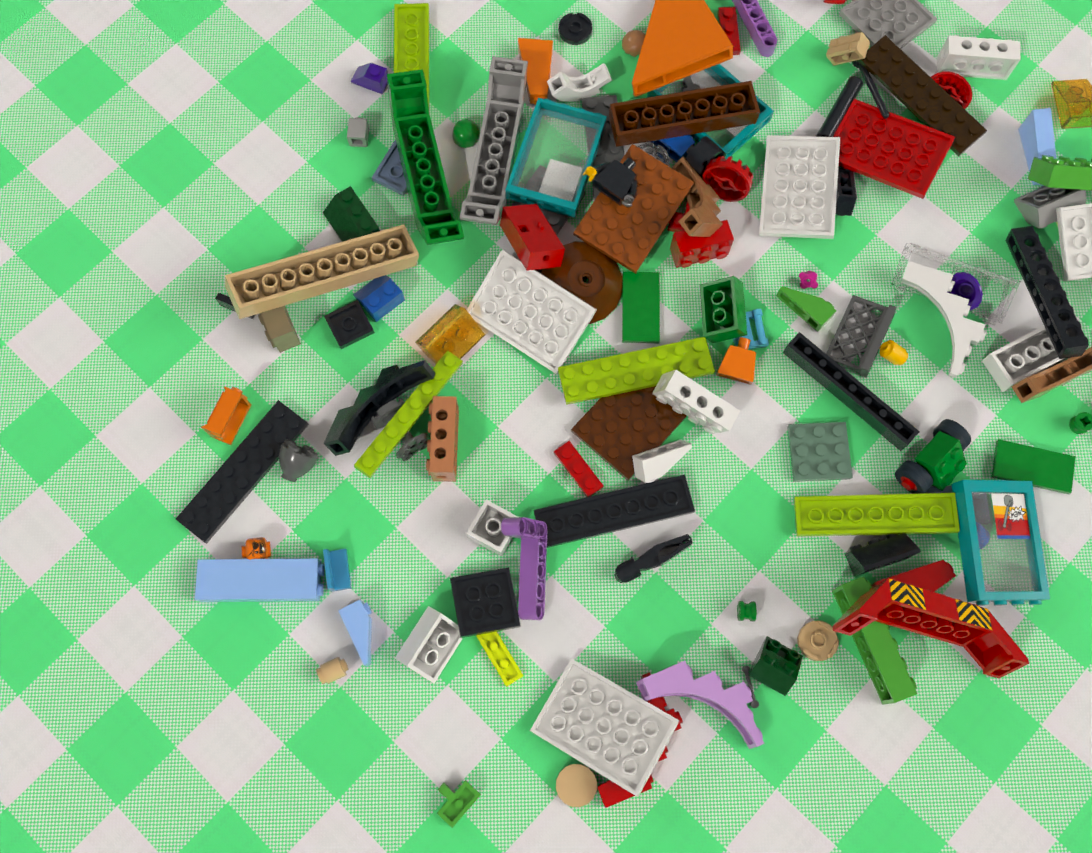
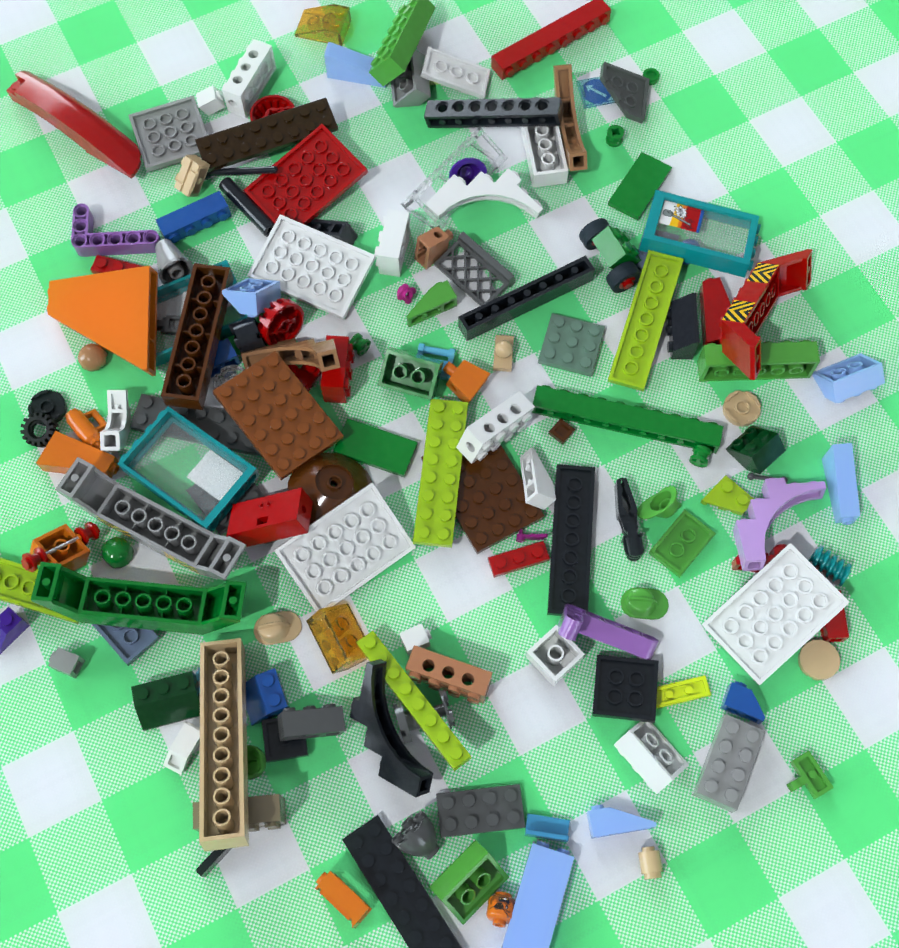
camera: 70 degrees left, 5 degrees down
(271, 516) = (469, 882): none -> bright green slope
(310, 243) = (182, 748): none -> white slope
(319, 305) = (255, 761): none -> bright green hair
(336, 508) = (480, 810): none -> dark grey plate
(366, 338) = (311, 722): none -> dark grey brick
(444, 285) = (277, 627): none -> tan piece
(444, 719) = (729, 763): none -> light grey brick
(448, 86) = (61, 547): none -> orange brick
(470, 401) = (415, 636): none -> white brick
(507, 717) = (742, 702): none -> blue slope
(549, 21) = (29, 427): none -> black tyre
(567, 60) = (84, 428): none -> orange piece
(576, 599) = (644, 603): none -> bright green piece
(600, 465) = (520, 537): none -> magenta piece
(615, 180) = (250, 416): black torso -> none
(649, 618) = (682, 543): none -> bright green tile
(676, 772) = (830, 565): none -> teal piece
(679, 585) = (662, 504): none -> bright green piece
(714, 651) = (728, 496): none -> lime wing
(722, 470) = (561, 431): none -> reddish brown tile
(737, 256) = (360, 344): none -> green wheel
(744, 143) = (252, 295): none -> light blue slope
(752, 66) = (171, 262): none -> light grey cone
(758, 529) = (626, 418): none -> green brick
(769, 764) = (842, 483): none -> light blue slope
(783, 390) = (503, 353): none -> tan tile
(807, 69) = (194, 217): none -> blue brick
(855, 248) = (393, 242): none -> white brick
(869, 285) = (432, 246): none -> nougat torso
(893, 352) = (502, 250): yellow brick -> none
(897, 745) = (849, 377): none -> light blue slope
(937, 34) = (210, 100): none -> white brick

